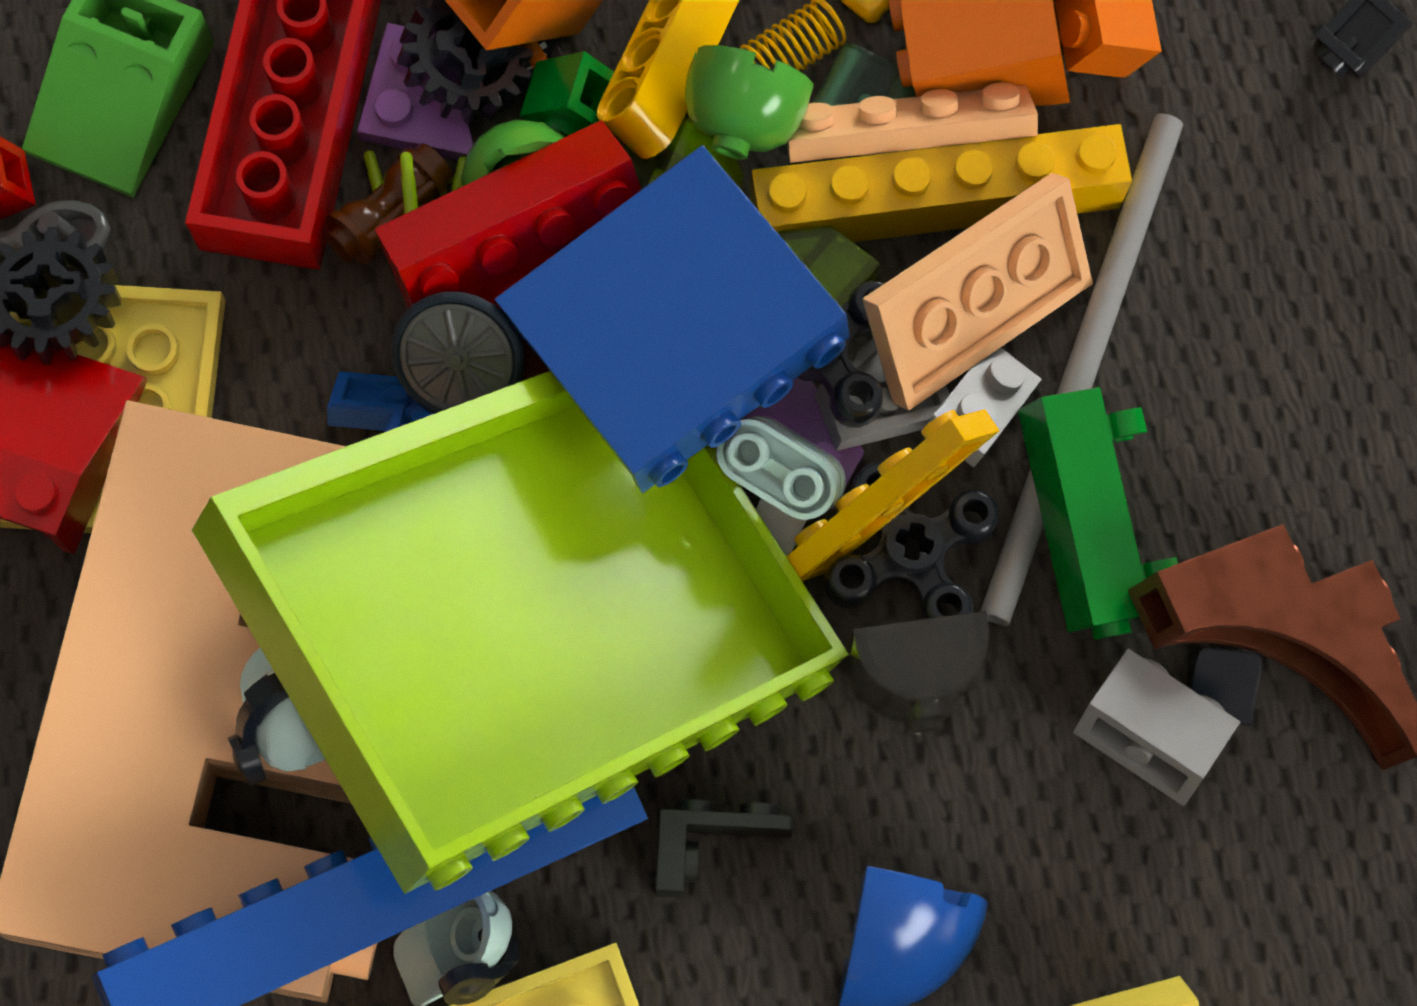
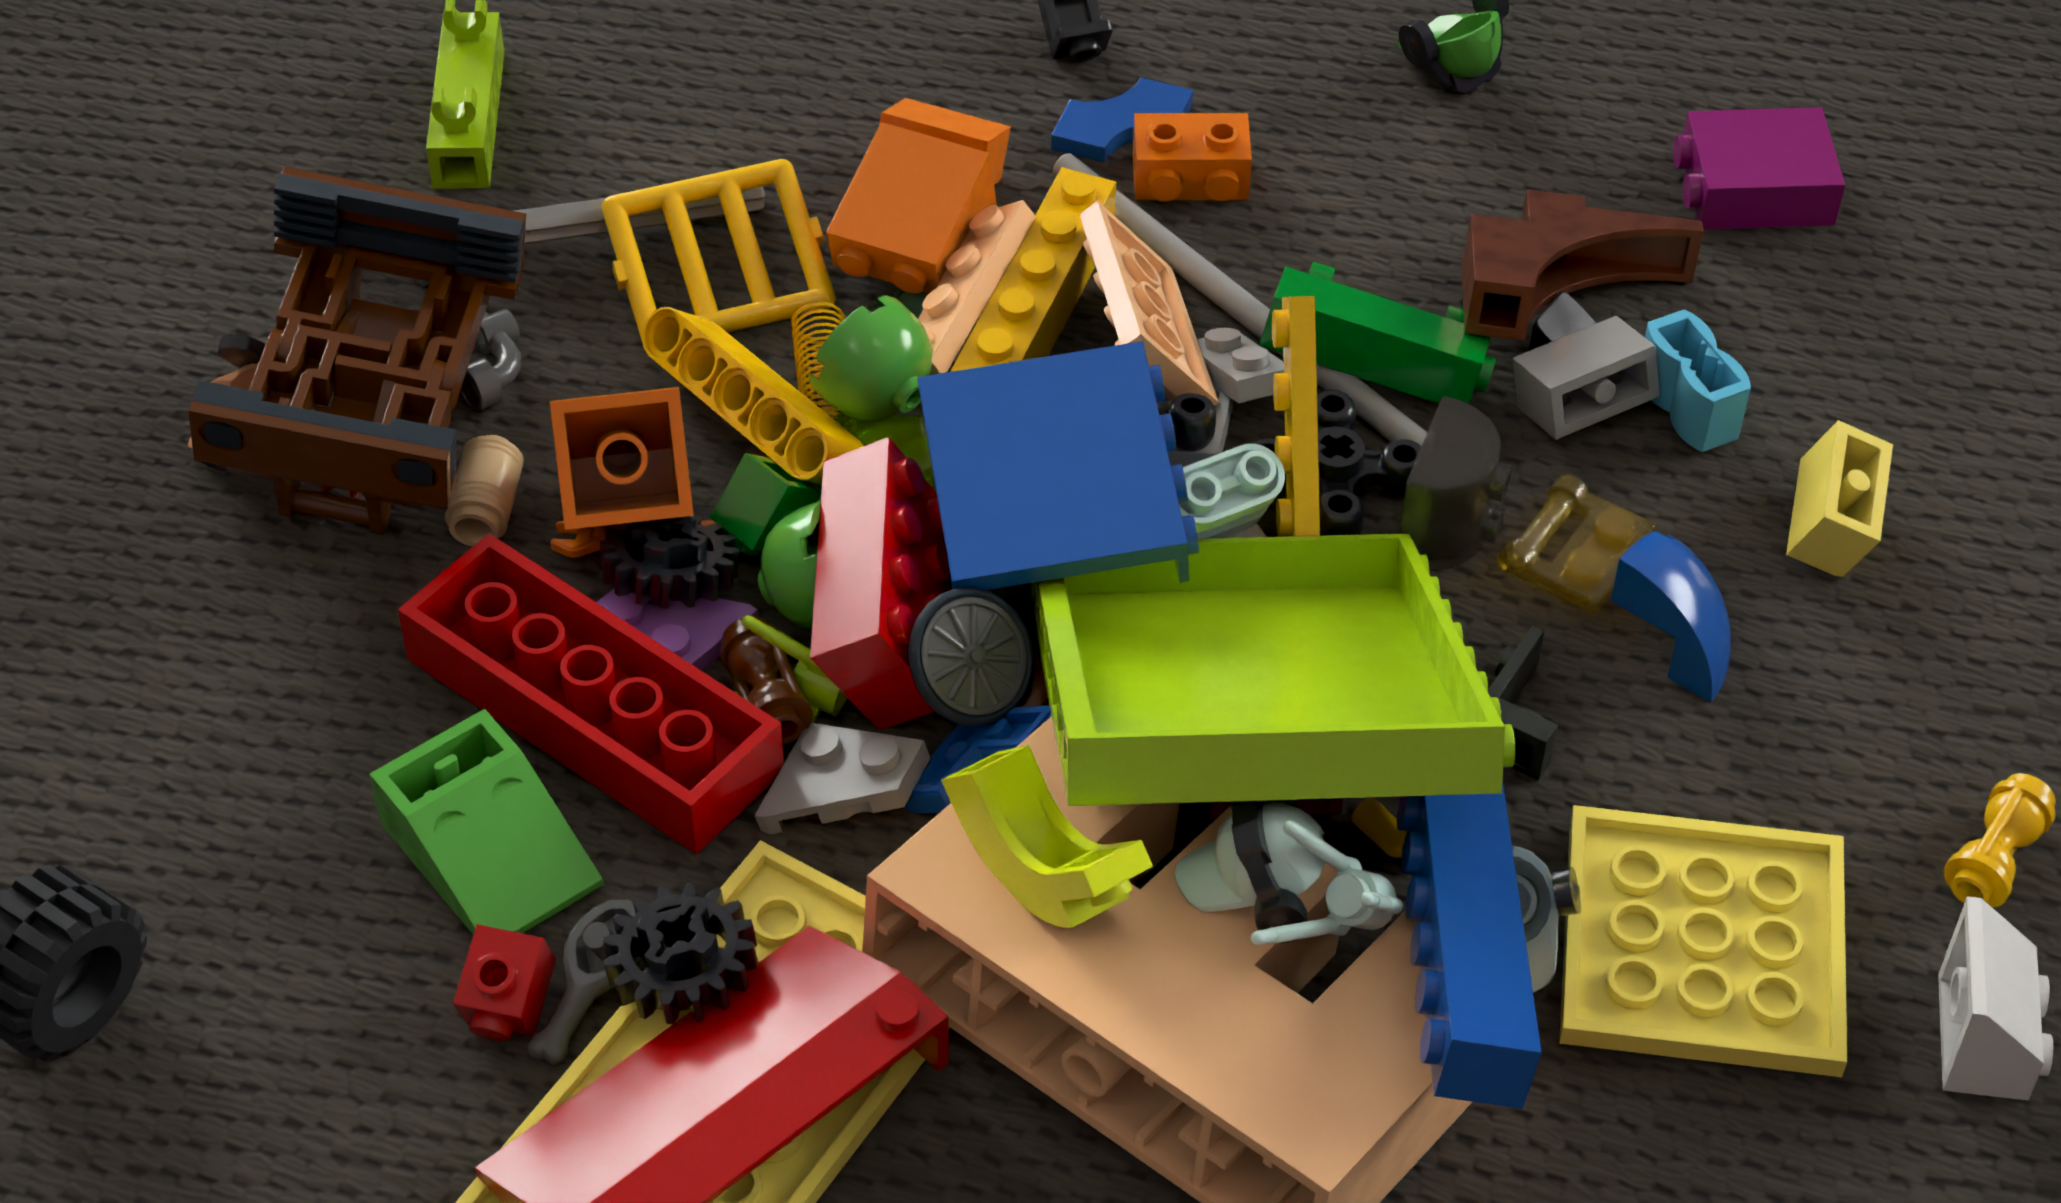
camera: 60 degrees left, 25 degrees down
(171, 570) = (1033, 844): none -> neon yellow arch
(297, 813) = (1352, 897): none -> light aqua plant
(328, 317) = (841, 775): none -> light grey wing
(948, 831) = (1588, 562): none -> clear yellow plate
(1206, 844) = (1697, 381): none -> medium azure brick
(1240, 229) = (1191, 156): none -> orange brick
(1289, 157) = (1102, 126): none -> blue tile

